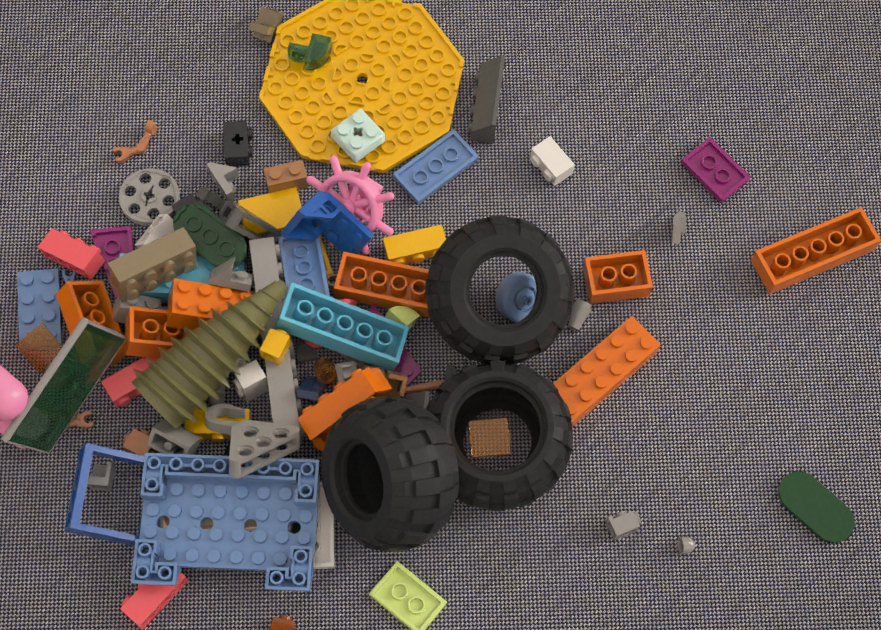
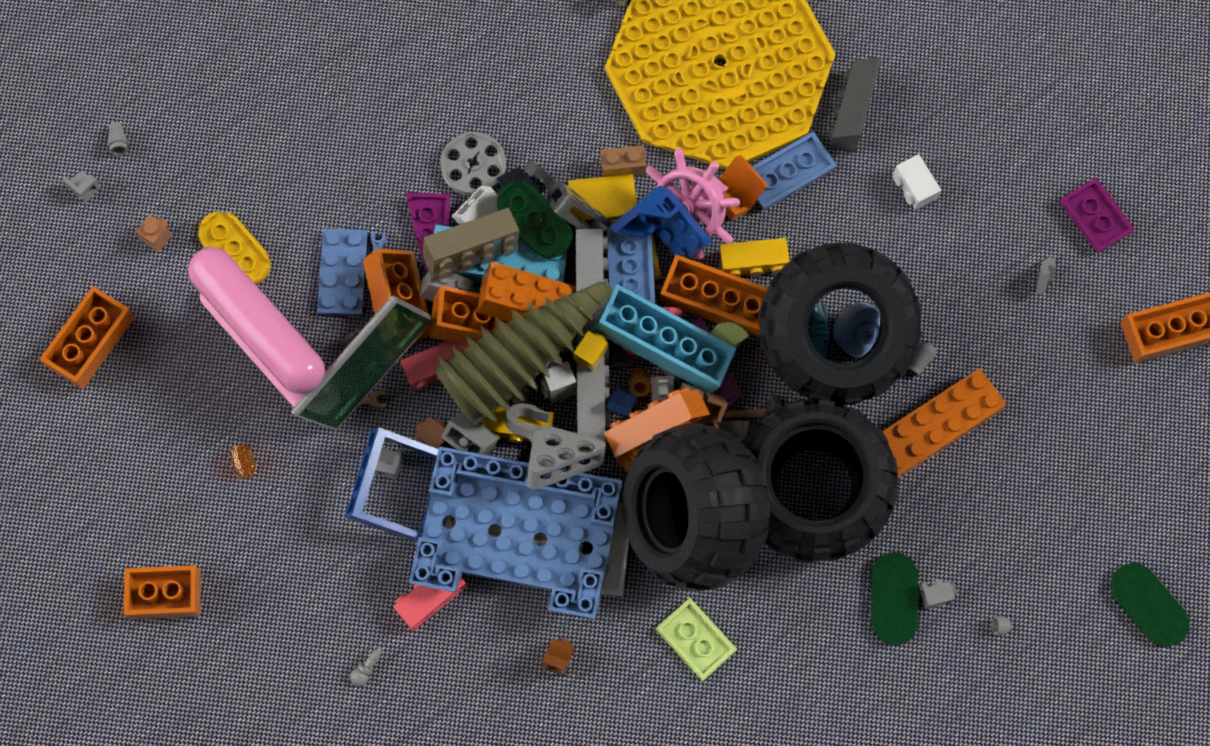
camera: 10 degrees right, 5 degrees up
(39, 347) = (340, 314): clear orange piece -> none
(71, 253) = (384, 216): coral brick -> none
(141, 148) = (469, 108): nougat piece -> none
(222, 176) = (554, 152): light grey slope -> none
(226, 277) = (547, 267): light grey slope -> none
(235, 153) = (571, 128): black brick -> none
(313, 55) = (671, 28): clear green brick -> none
(358, 146) = (703, 137): light aqua brick -> none
(399, 181) = (742, 184): none -> orange bracket
(482, 299) = (819, 329): none -> medium azure hinge
(489, 437) = (807, 484): clear orange piece -> none
(585, 535) = (894, 598): none -> dark green tile
(617, 277) = (970, 322): orange brick -> none

